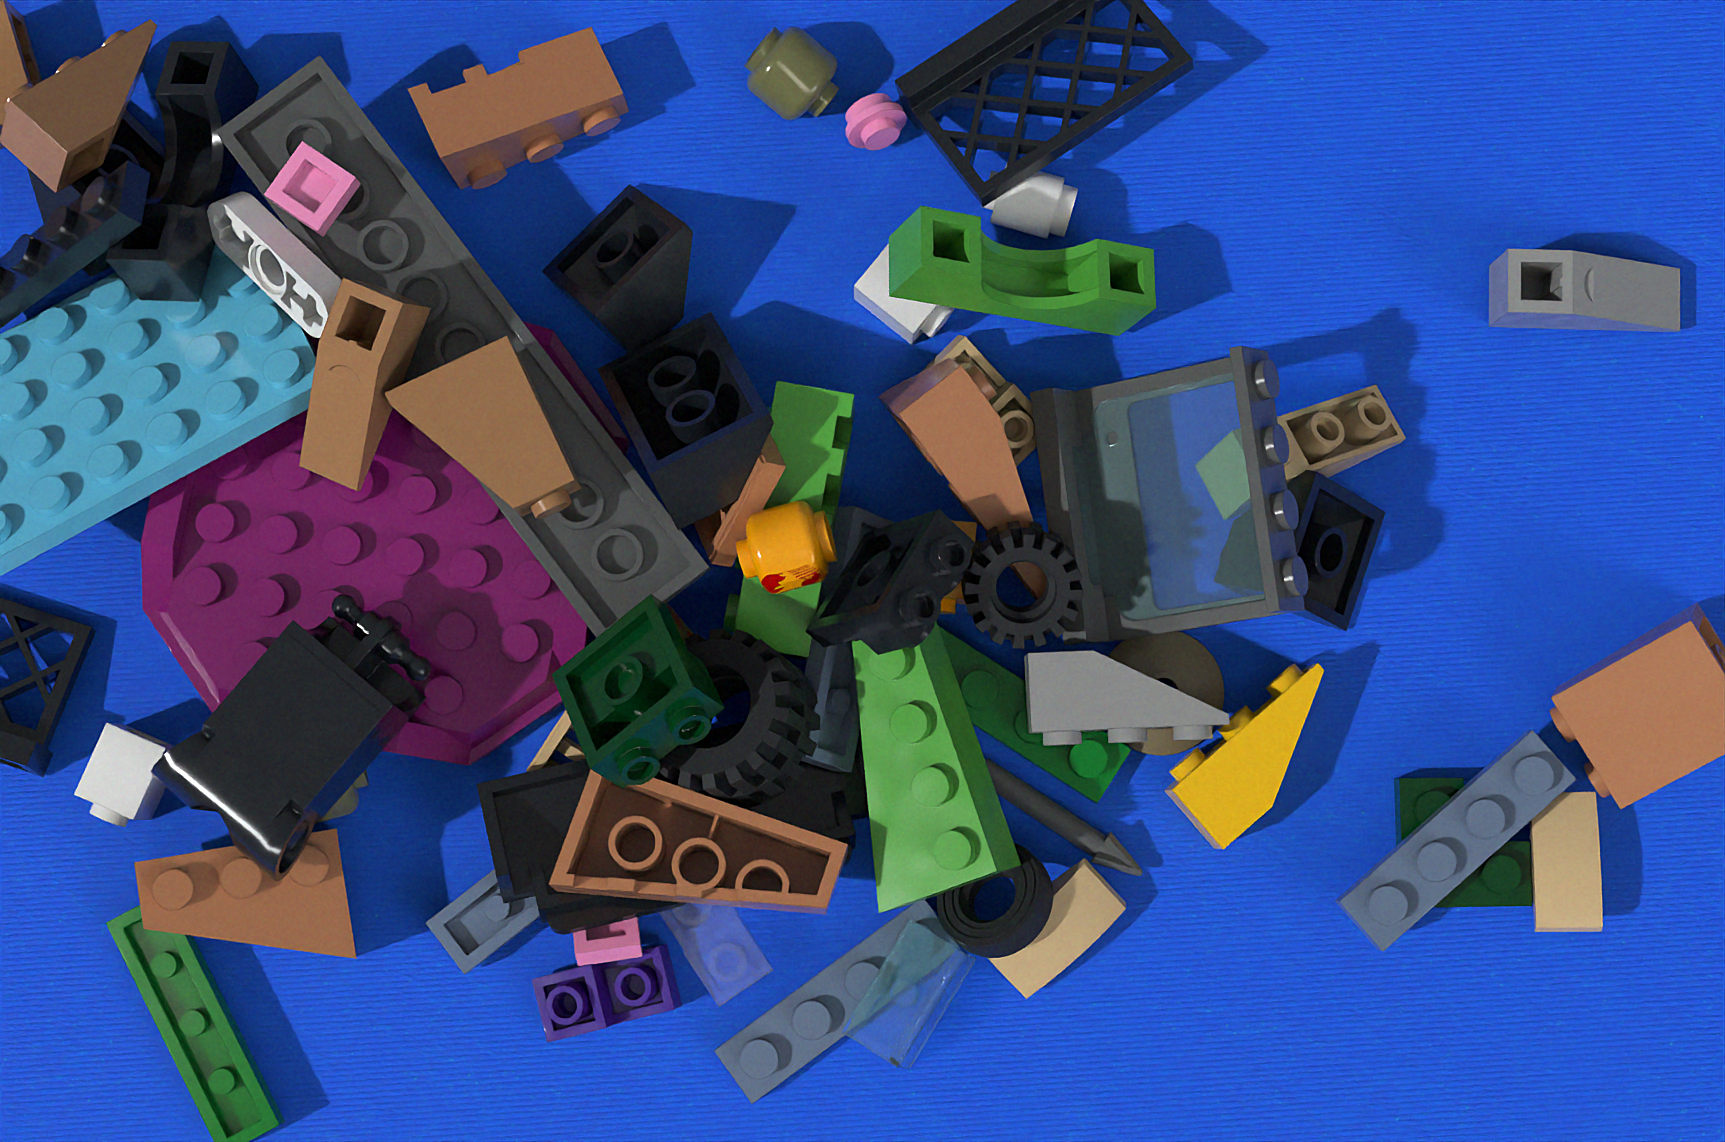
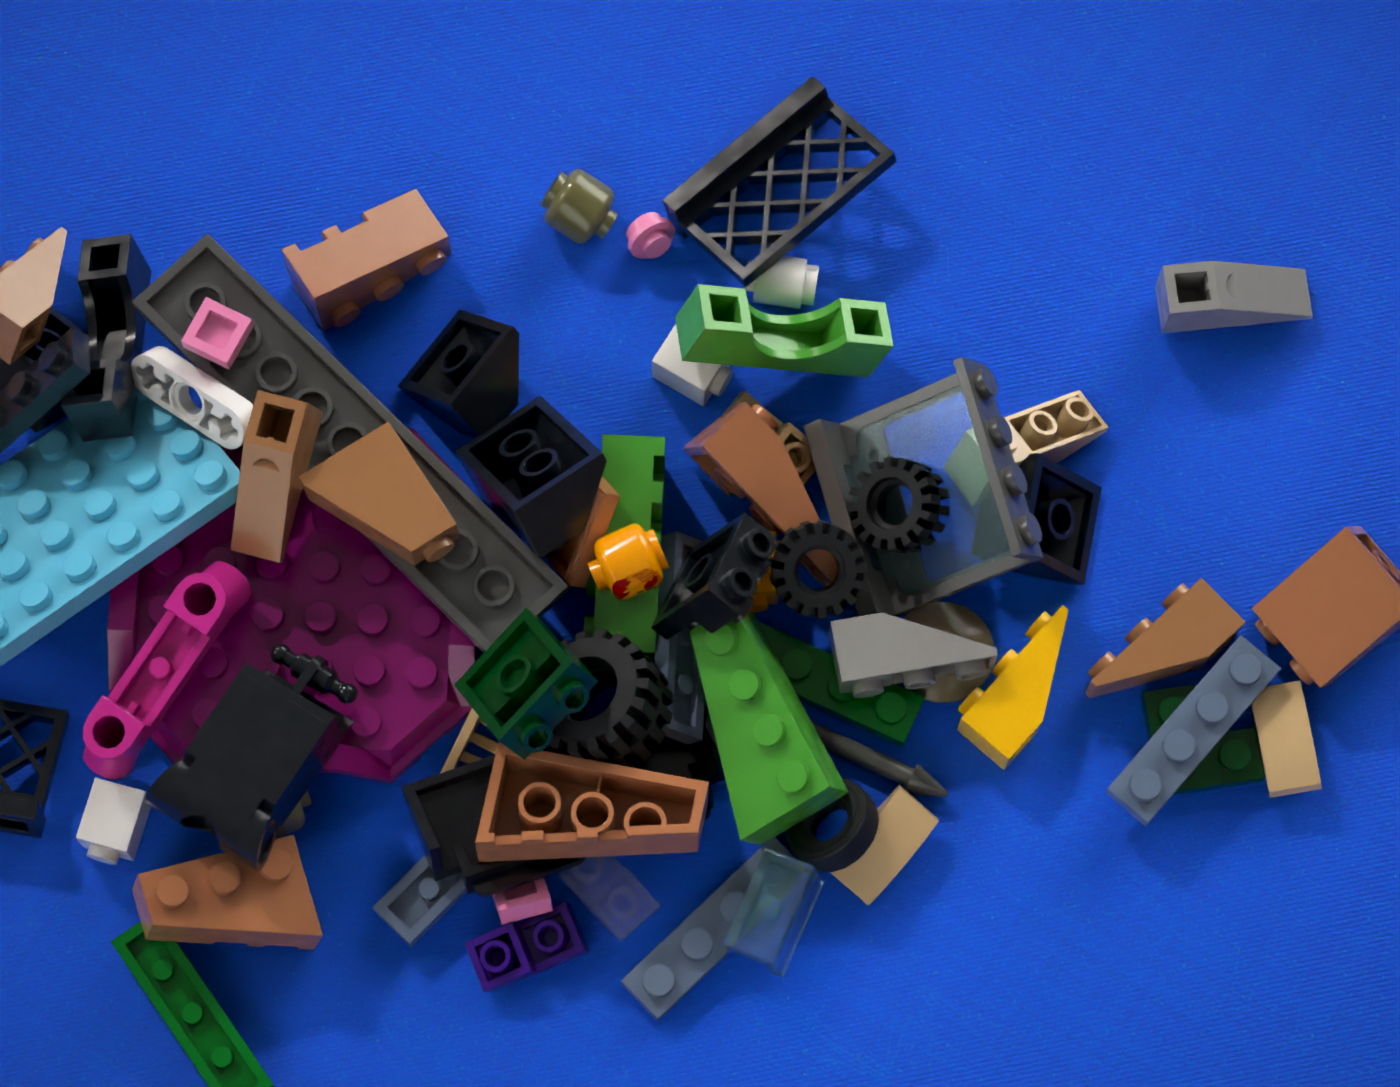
camera: 10 degrees left, 10 degrees down
(199, 601) = (161, 668): none -> dark pink plate
(1099, 512) = (873, 497): none -> black tyre
(1462, 716) = (1178, 642): none -> medium nougat slope

